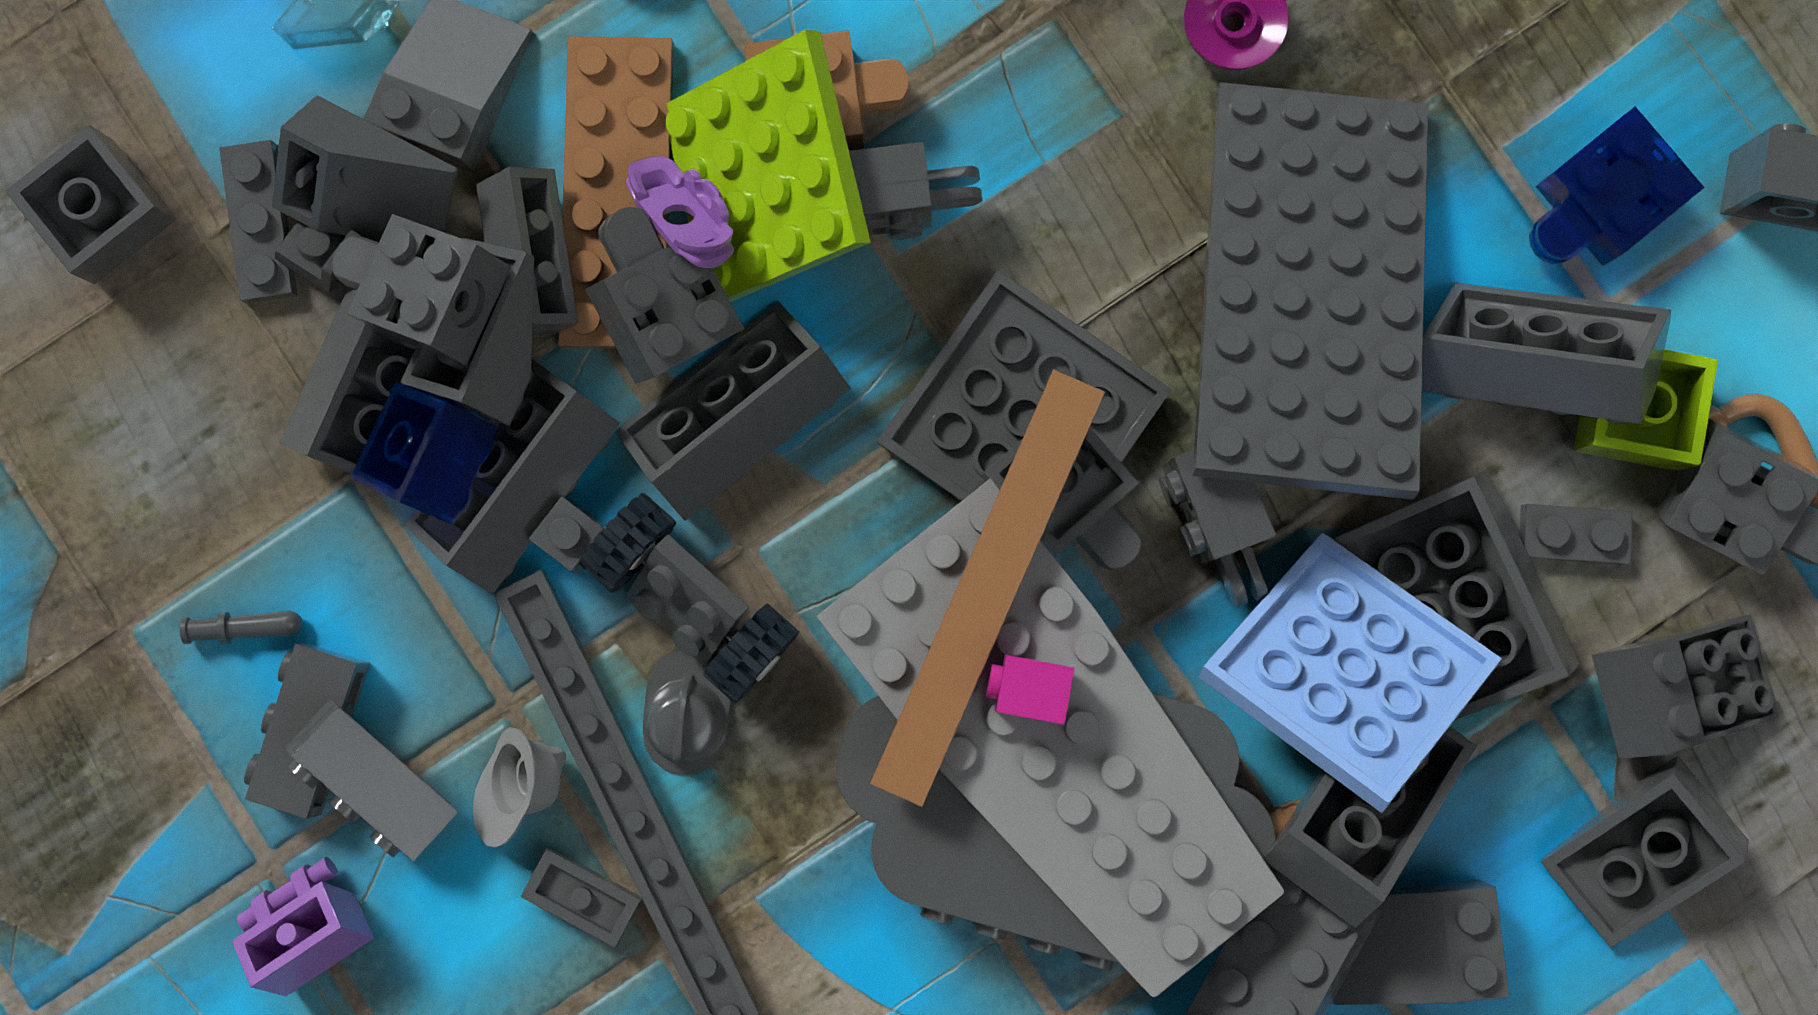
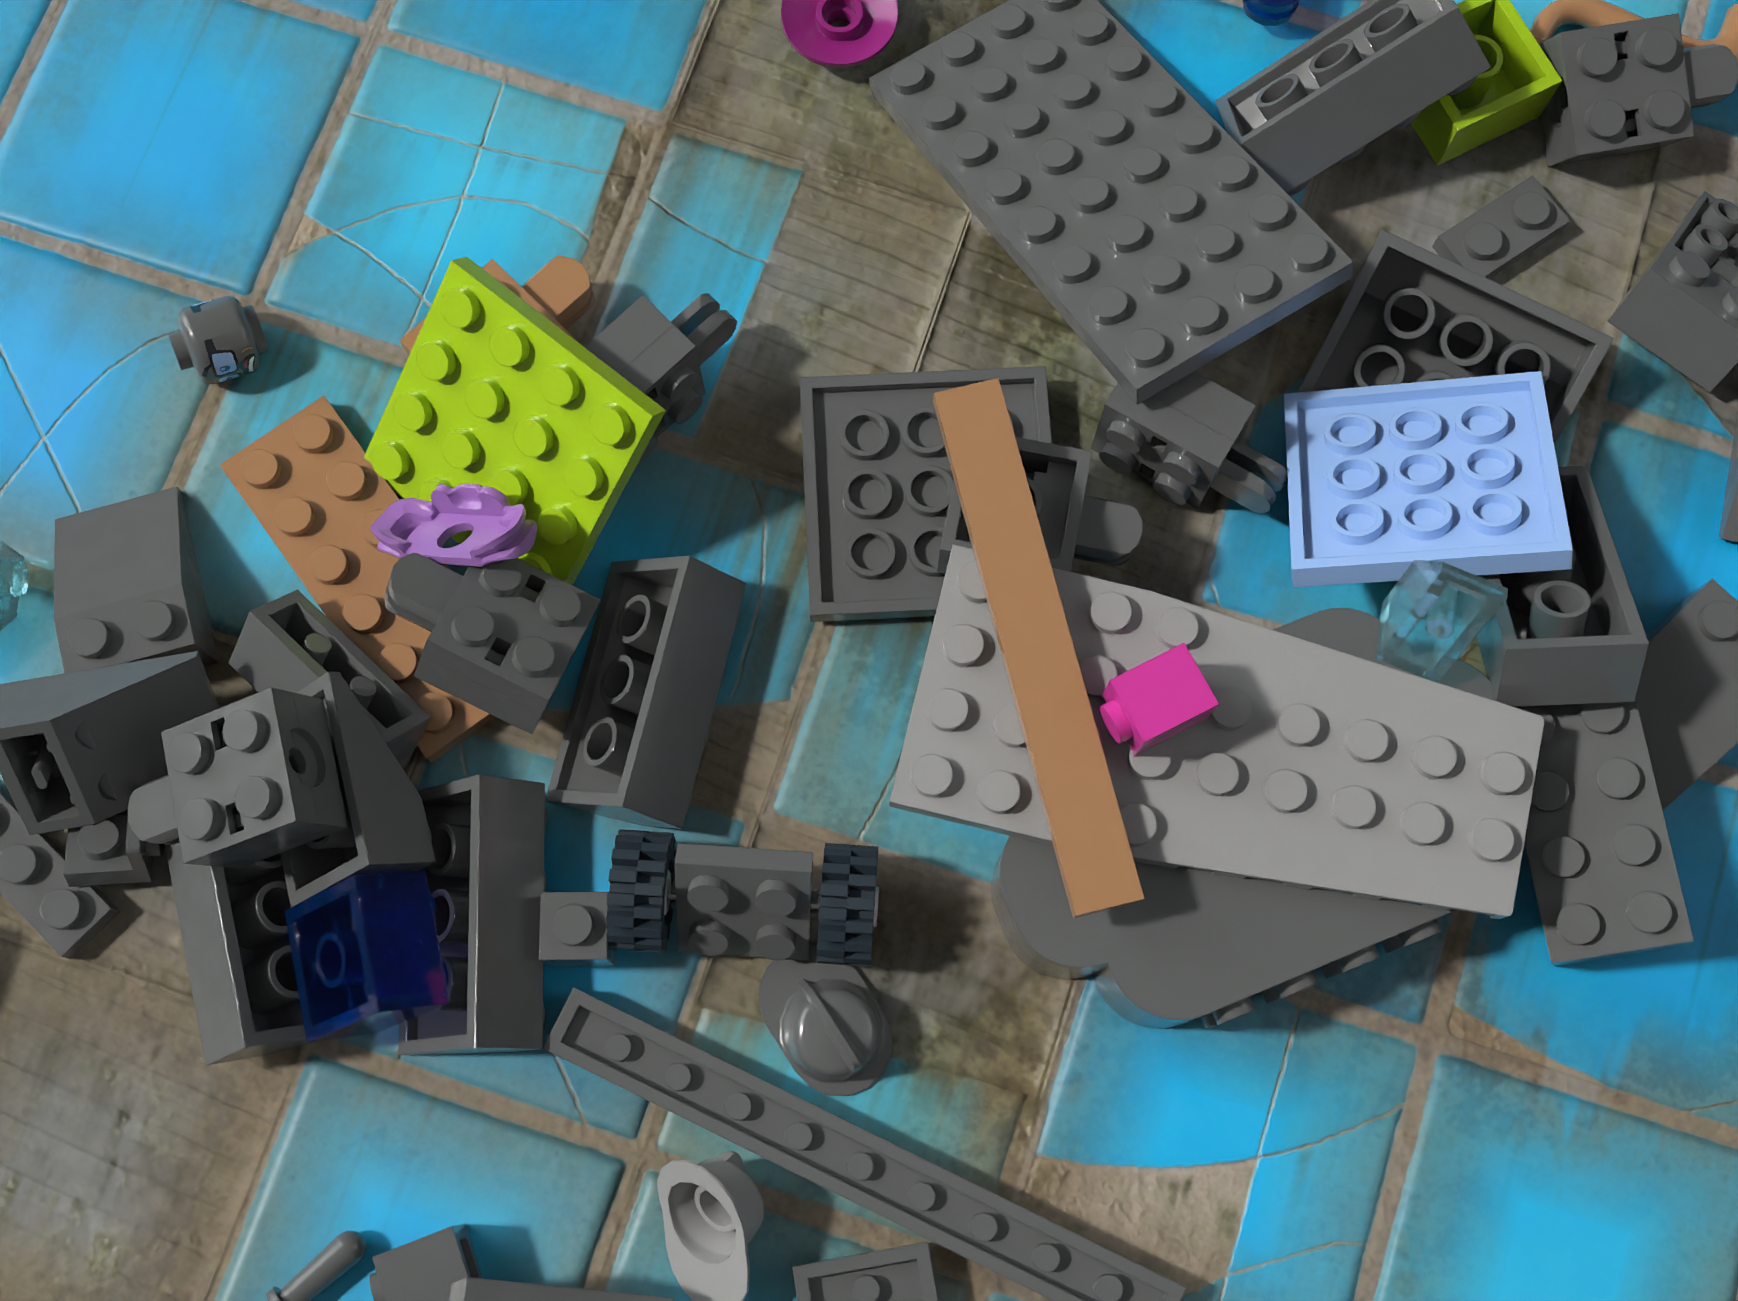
camera: 45 degrees left, 10 degrees down
(1263, 773) = (1434, 617): none -> clear light blue slope

